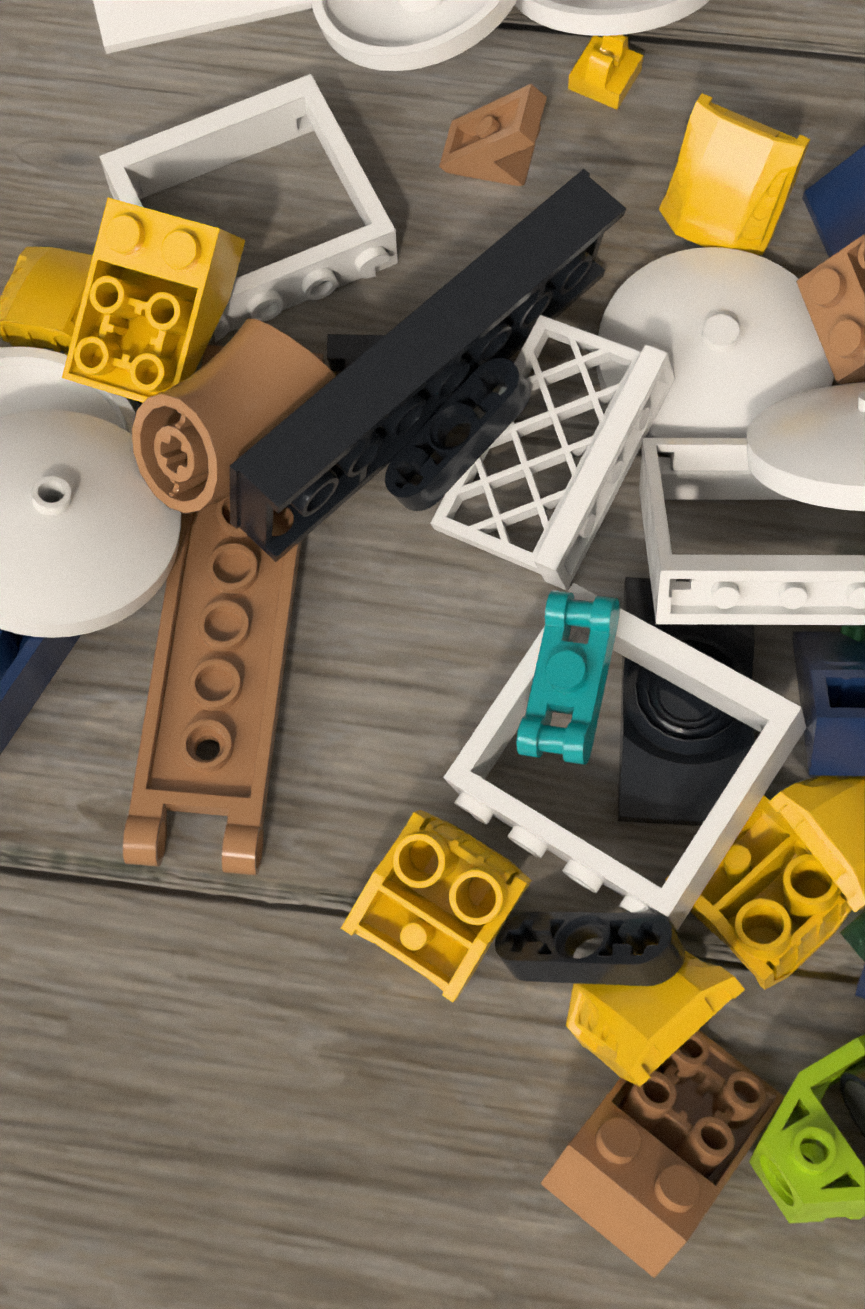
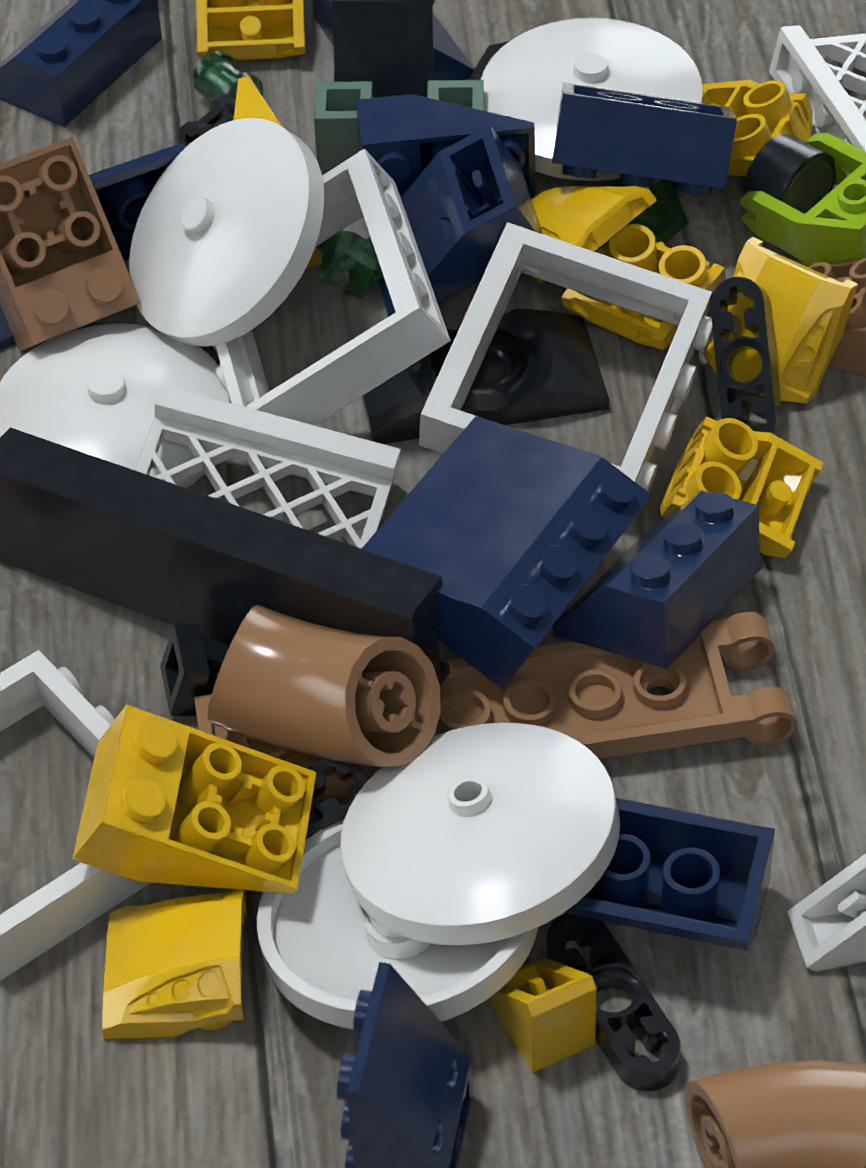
camera: 105 degrees left, 20 degrees down
(311, 773) = (669, 582): none -> dark blue slope
(379, 614) = (512, 535): none -> dark blue slope
(569, 677) = (520, 389): teal plate -> none

